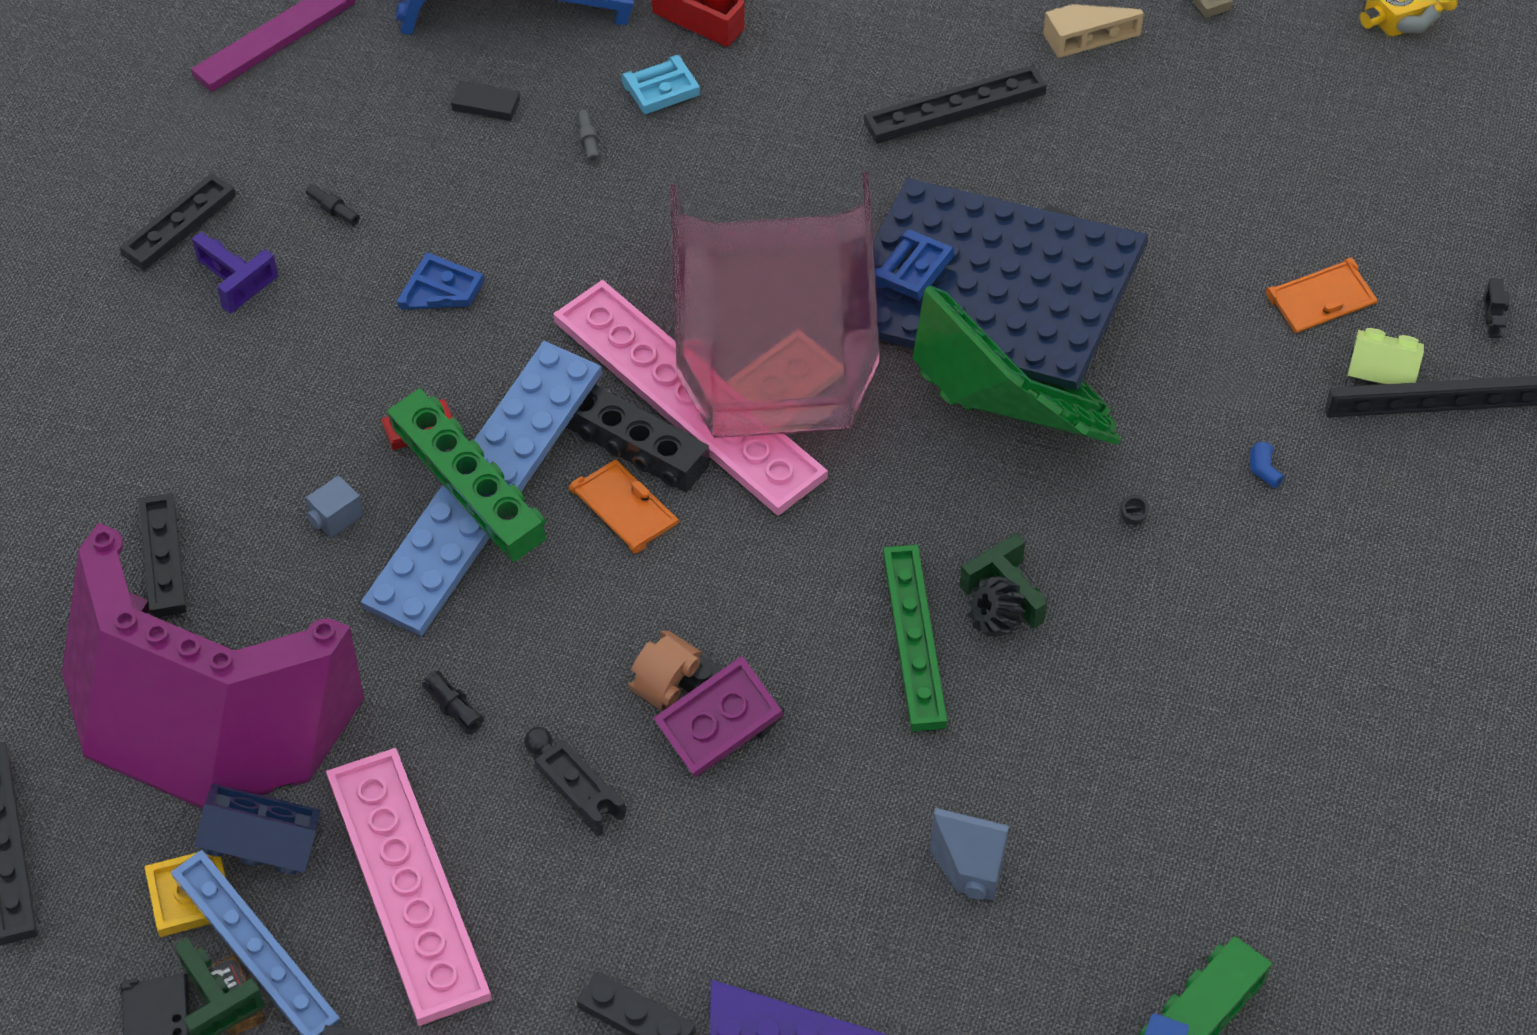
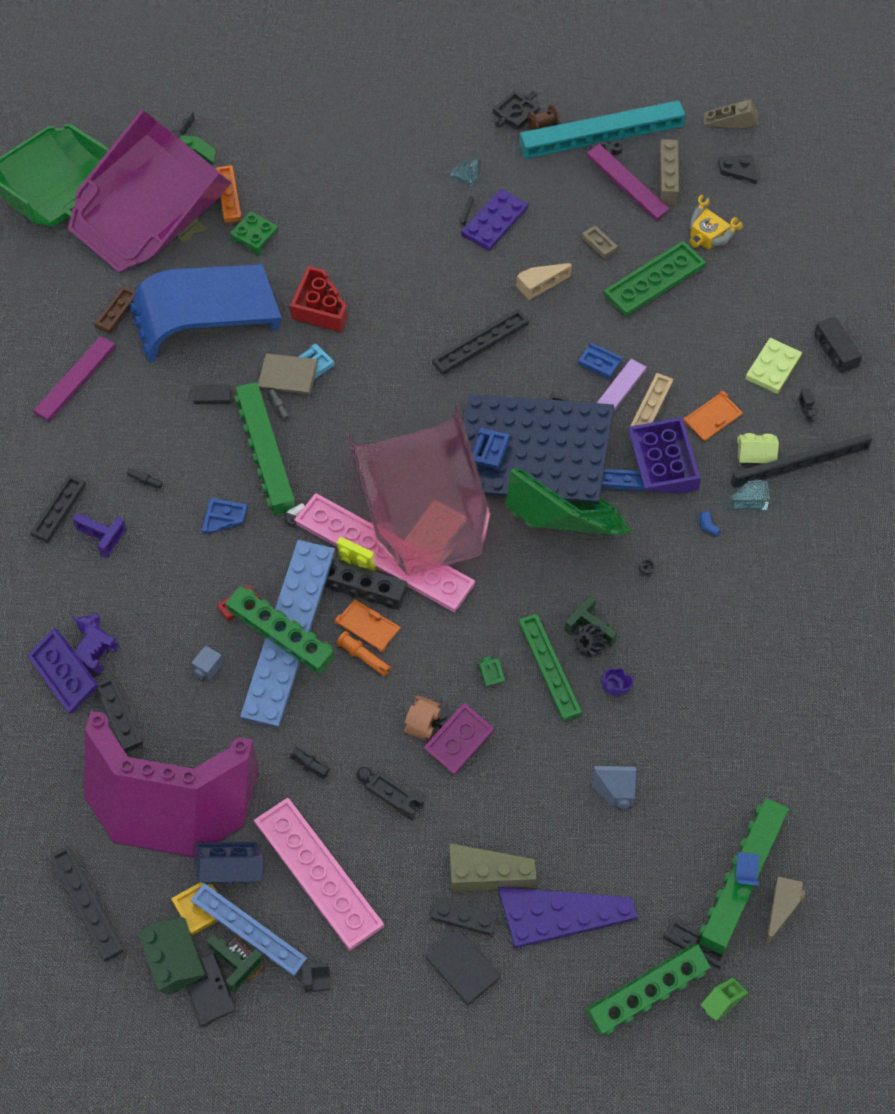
camera: 15 degrees left, 5 degrees up
(94, 466) = (63, 670): none -> dark purple plate
(111, 958) = (171, 955): none -> dark green slope
(157, 438) = (94, 642): none -> dark purple animal
(542, 198) = (265, 448): none -> green brick
(552, 305) = (292, 514): none -> arm
(592, 537) = (356, 648): none -> orange pin
(617, 90) = (288, 373): none -> dark tan tile
(635, 384) = (355, 554): none -> neon yellow plate
(698, 945) = (487, 870): none -> olive wedge
(809, 620) = (491, 670): none -> green bracket
(1023, 685) = (616, 682): none -> dark purple hair
(1134, 363) = (622, 480): none -> blue plate
(1150, 171) = (600, 360): none -> blue plate
(1180, 216) = (623, 383): none -> lavender tile
(1216, 339) = (665, 456): none -> dark purple slope
(1218, 256) = (653, 400): none -> tan plate
(1282, 62) = (654, 278): none -> green plate
(1352, 434) = (751, 496): none -> clear light blue slope
(1453, 236) = (773, 365): none -> yellowish green plate

